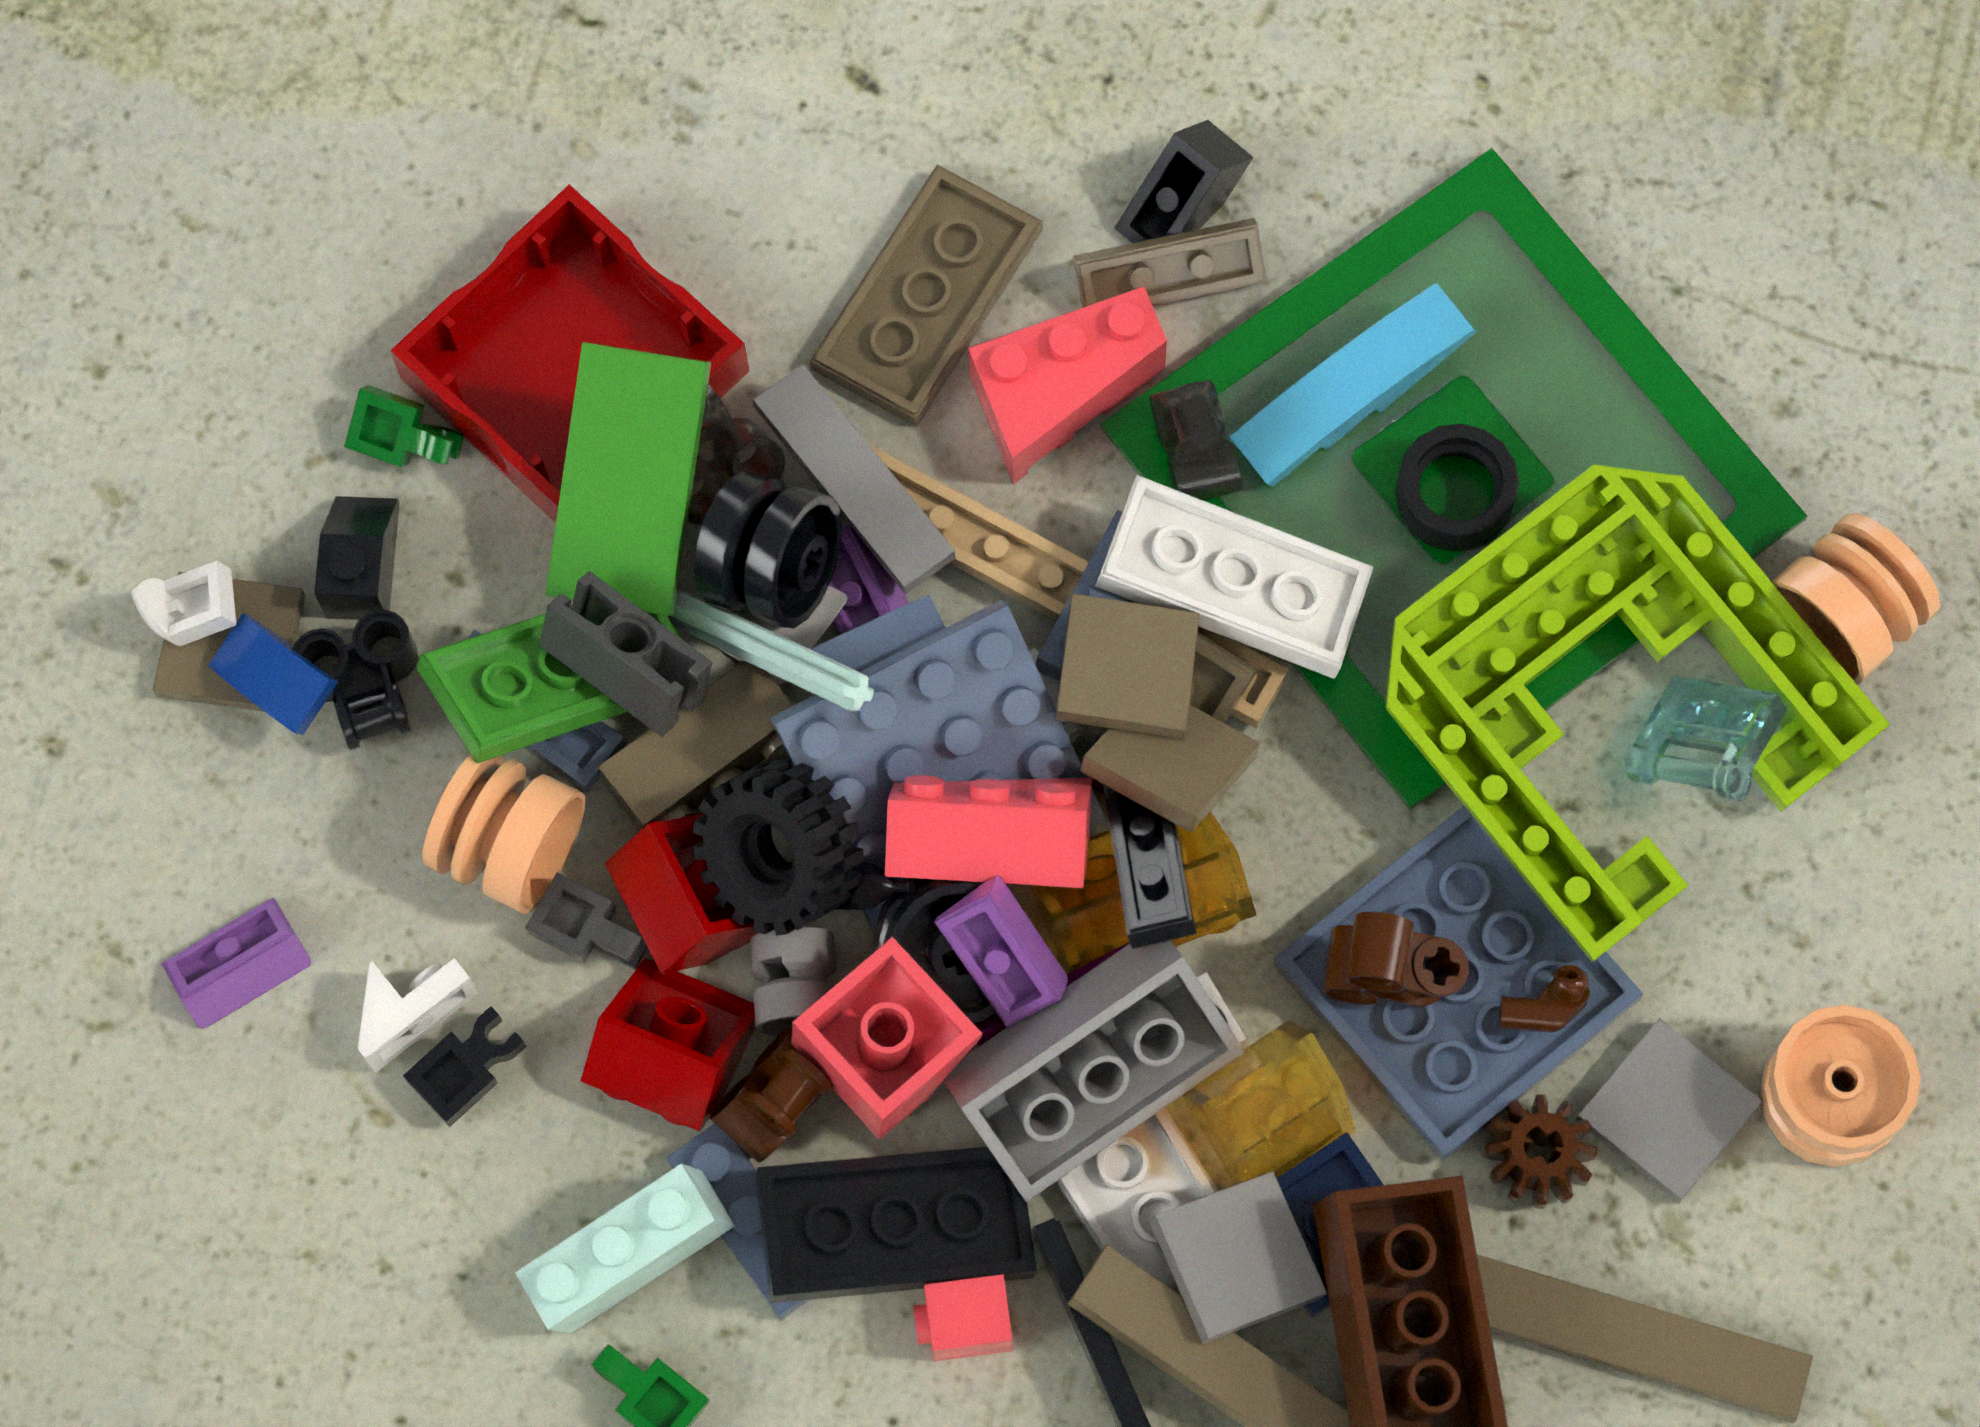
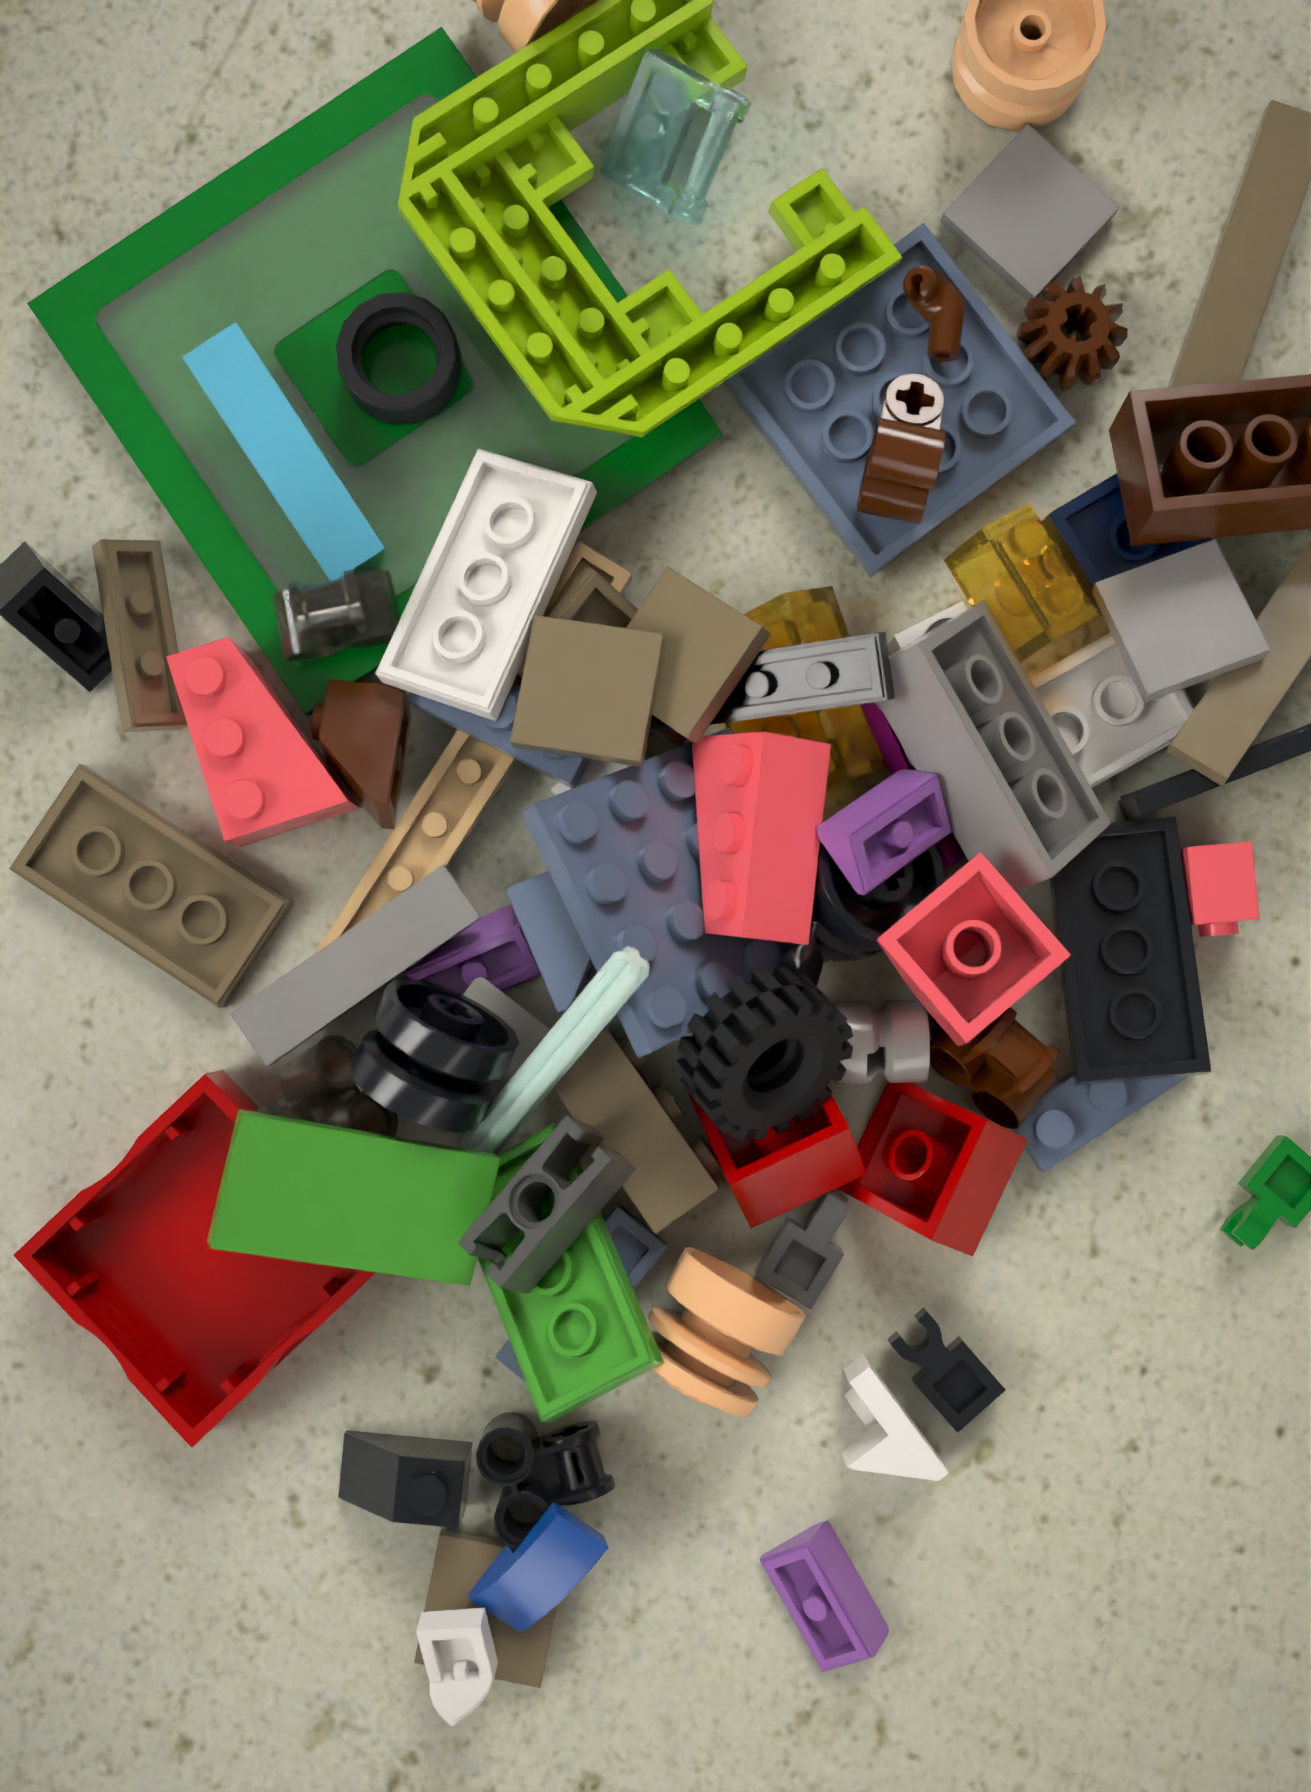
camera: 85 degrees left, 15 degrees up
(392, 429) = (275, 1439): green plate -> none
(624, 1249) = (1148, 1215): light aqua brick -> none
(1073, 479) = (365, 742): none -> reddish brown slope

